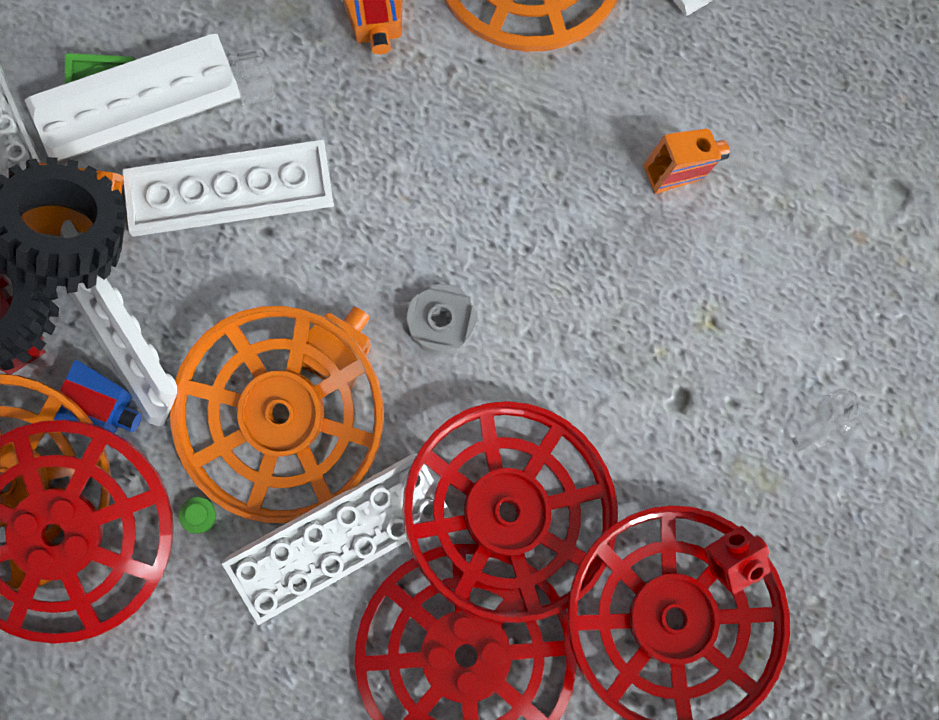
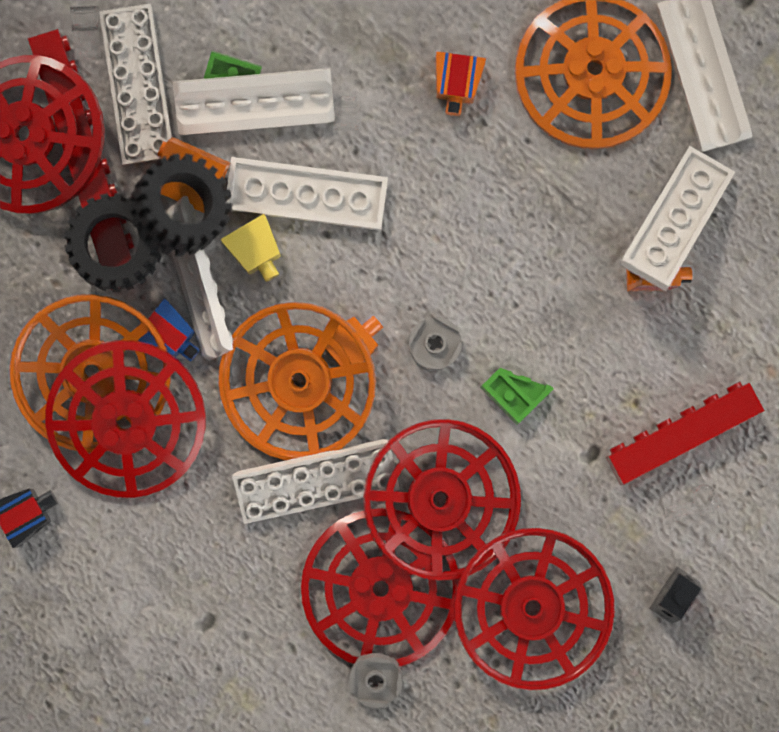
camera: 15 degrees right, 10 degrees up
(178, 268) = (254, 247): none -> light yellow torso
(197, 515) = (221, 434): bright green plate -> none
(560, 351) = (515, 393): none -> bright green wing
(689, 85) = (677, 218): none -> white plate
(738, 559) = (586, 582): red brick -> none
(787, 338) = (684, 433): none -> red brick
(855, 541) = (676, 596): none -> black torso

